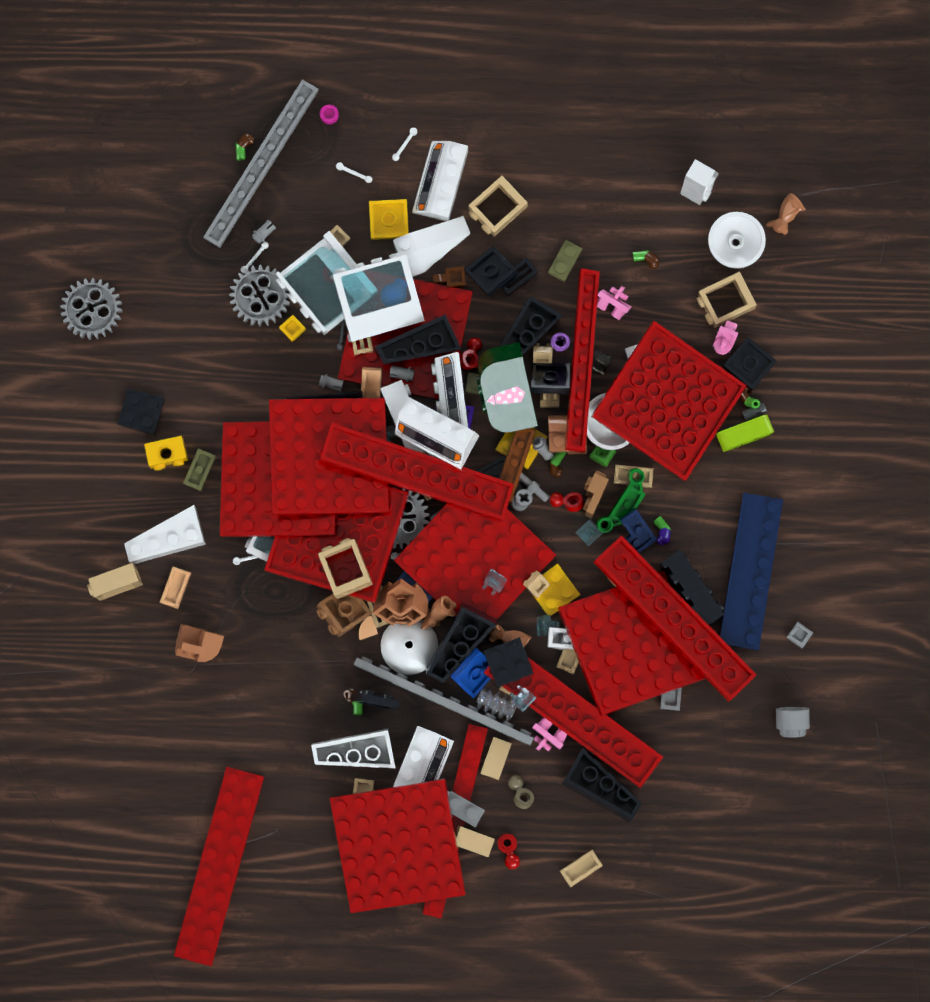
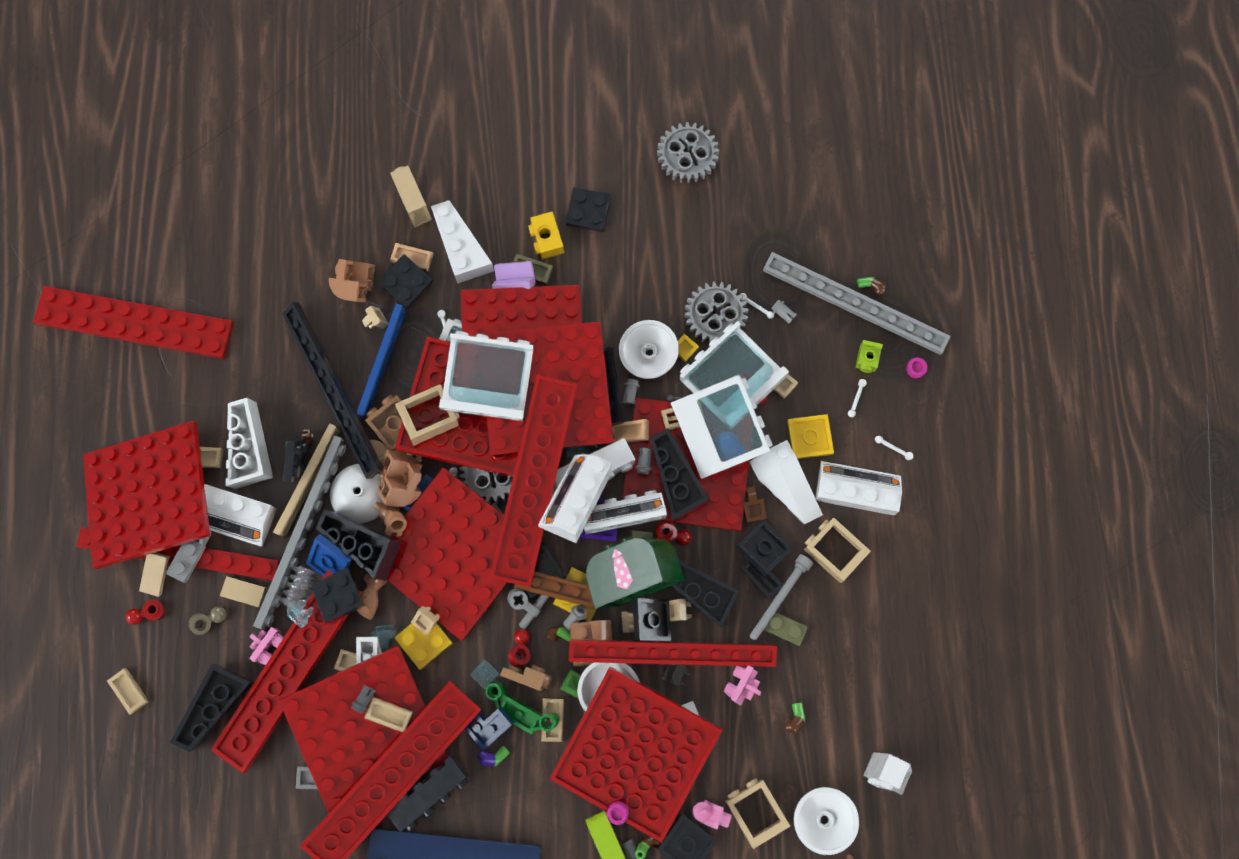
camera: 85 degrees right, 5 degrees down
(201, 593) = (405, 281): none -> black plate
(207, 486) = (514, 275): none -> lavender panel
(236, 623) = (374, 318): none -> tan tile
(290, 347) = (648, 336): none -> white dish
(292, 623) = (381, 361): none -> blue tile
(306, 666) = (333, 391): none -> black plate
(316, 507) = (487, 376): none -> clear light blue panel
(320, 163) = (868, 348): none -> lime brick
(392, 692) = (305, 483): none -> tan tile
(495, 581) = (425, 574): clear light blue tile -> none
(509, 239) = (802, 565): none -> light grey piece
(560, 338) = (697, 627): medium lavender cone -> none
(606, 637) = (363, 699): none -> dark grey pin
(620, 618) = (388, 714): none -> tan tile
(719, 421) = (617, 813): none -> dark pink tile

